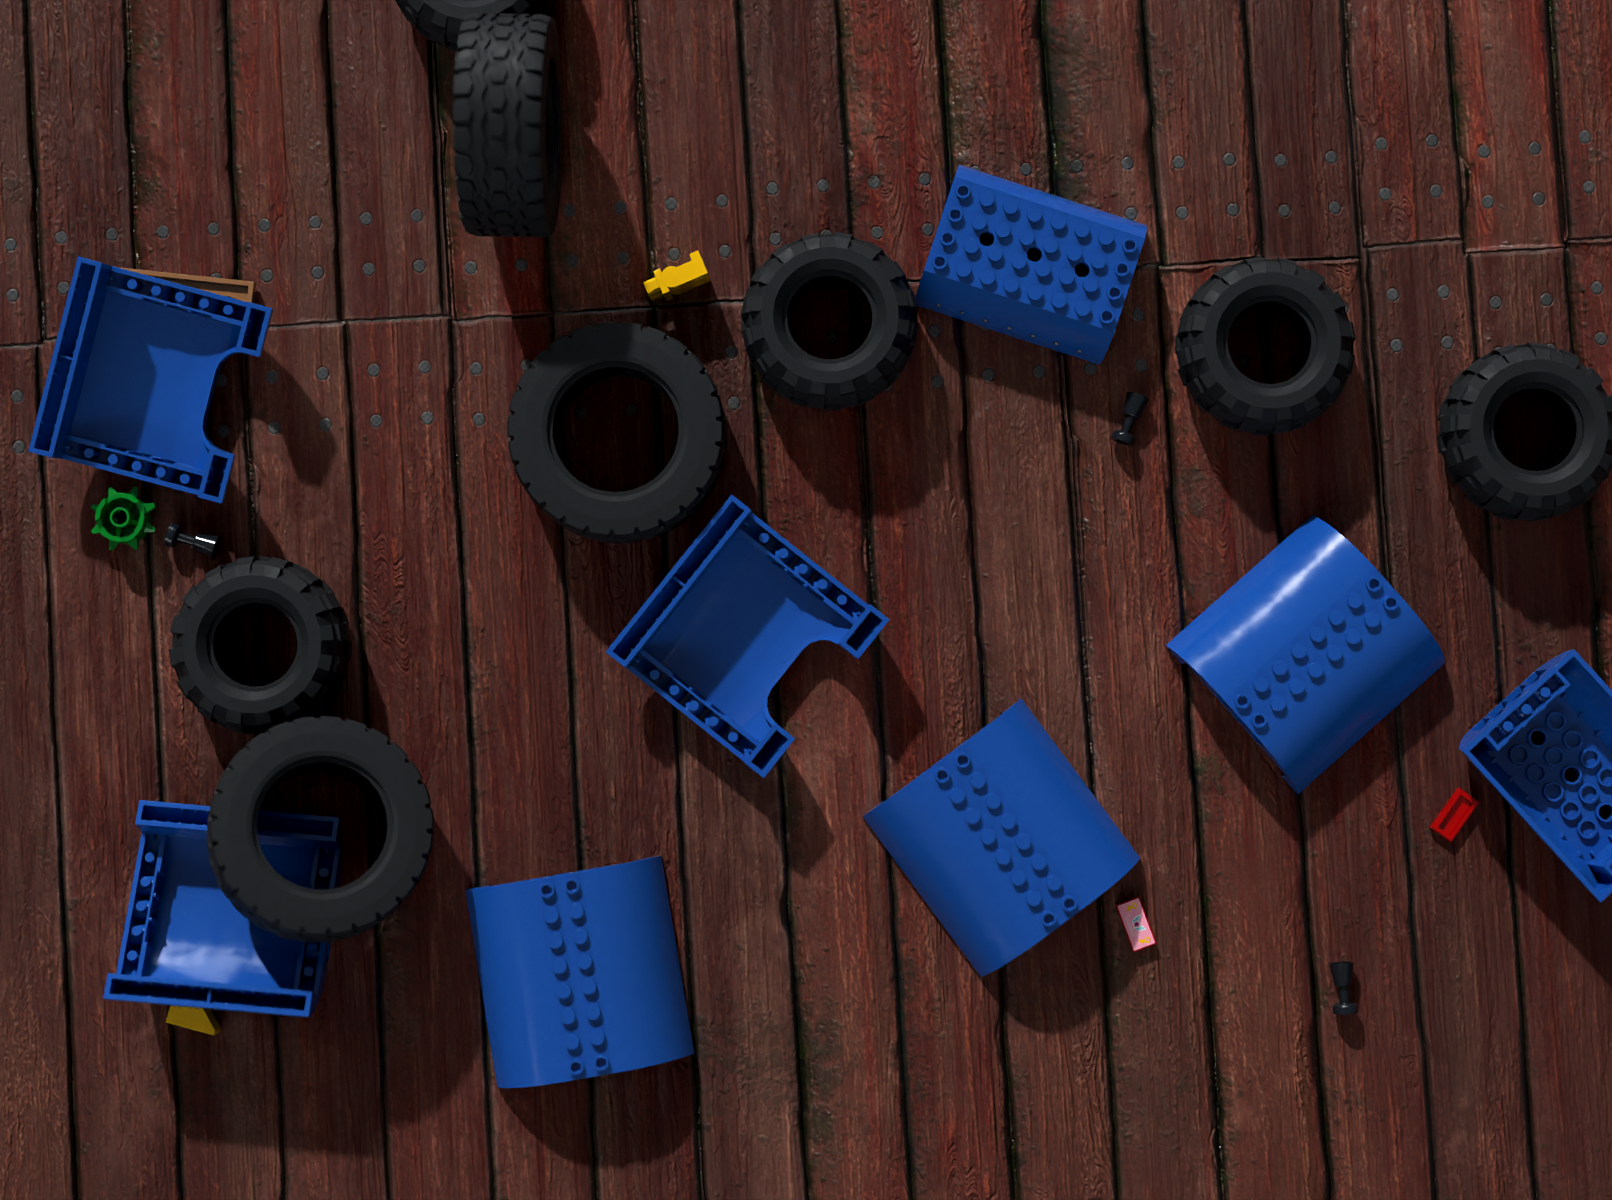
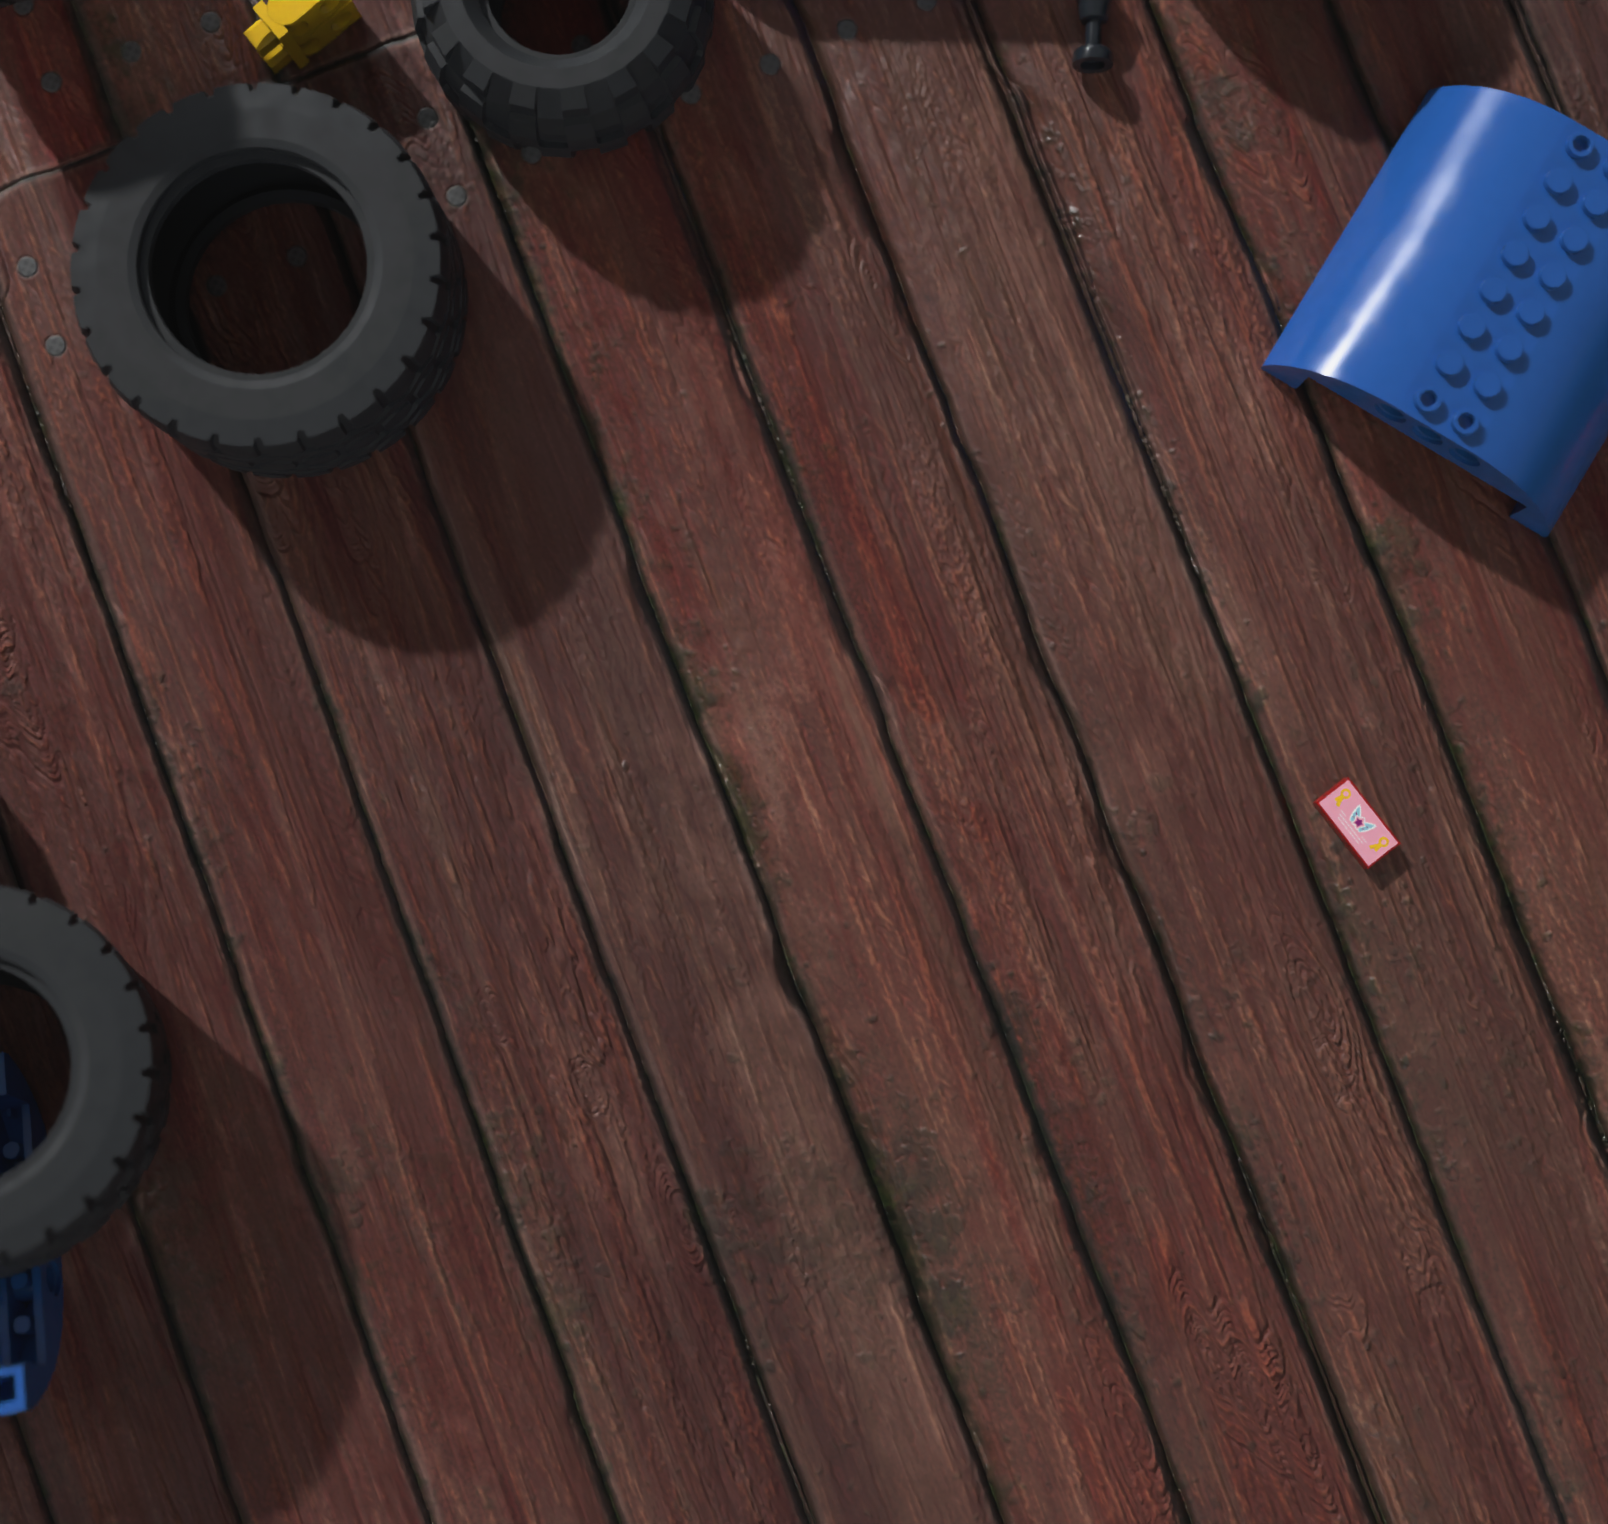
camera: 20 degrees left, 0 degrees up
(579, 974) = (485, 1184): blue slope -> none
(734, 625) = (558, 540): blue slope -> none
(1003, 839) = (1102, 756): blue slope -> none

